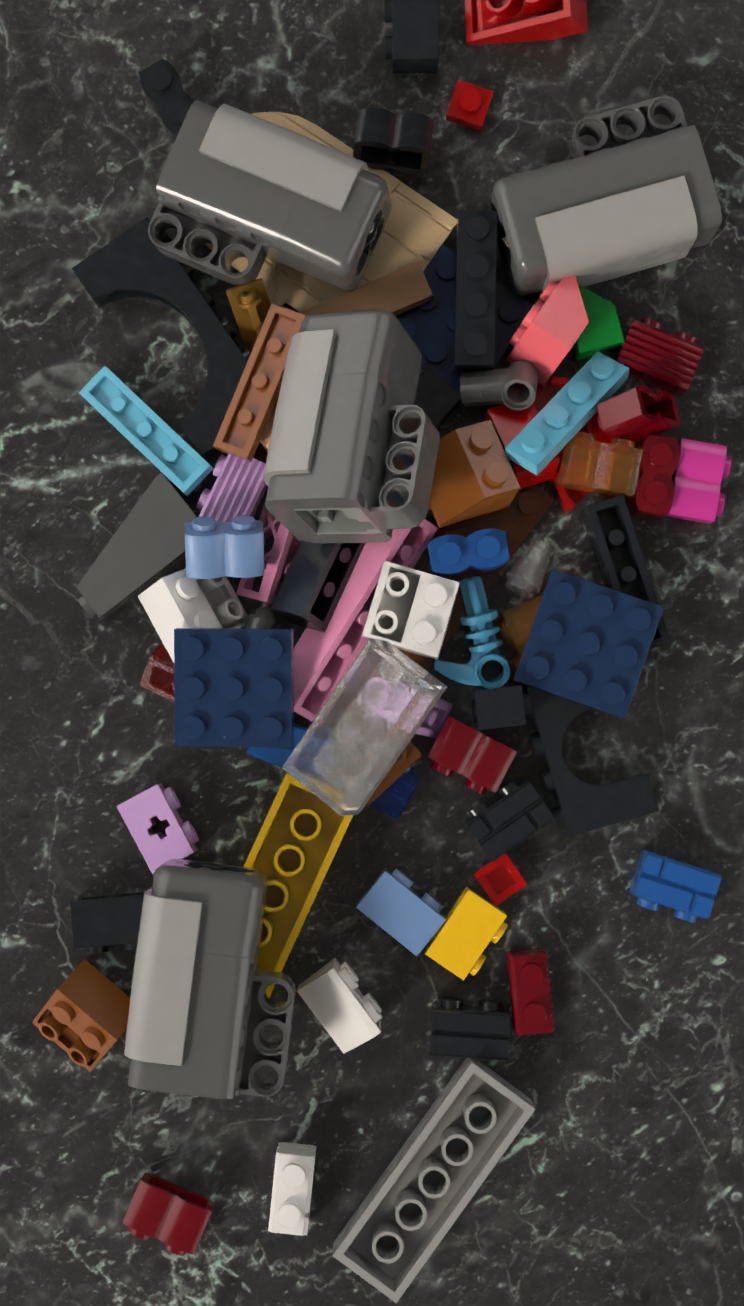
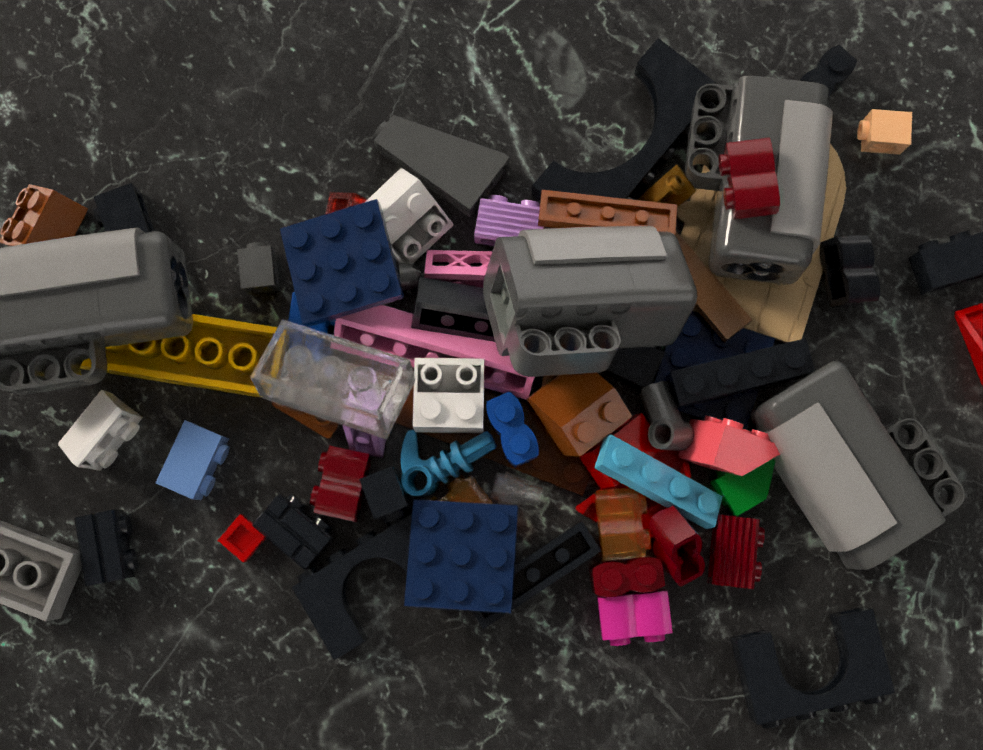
camera: 75 degrees right, 5 degrees down
(140, 816) = (216, 222): lavender brick -> none
(146, 430) = (541, 137): medium azure plate -> none
(206, 785) = (258, 269): none -> dark grey brick
(224, 548) = (458, 223): medium blue brick -> none
(248, 53) = (885, 131): none -> light nougat brick
(278, 213) = (750, 178): none -> dark red brick
(396, 796) = (289, 429): clear blue brick -> none
(466, 934) = (187, 521): yellow brick -> none
(469, 105) = (901, 329): red plate -> none
(530, 991) = (150, 591): dark red brick -> none
(674, 885) = (273, 694): blue brick -> none

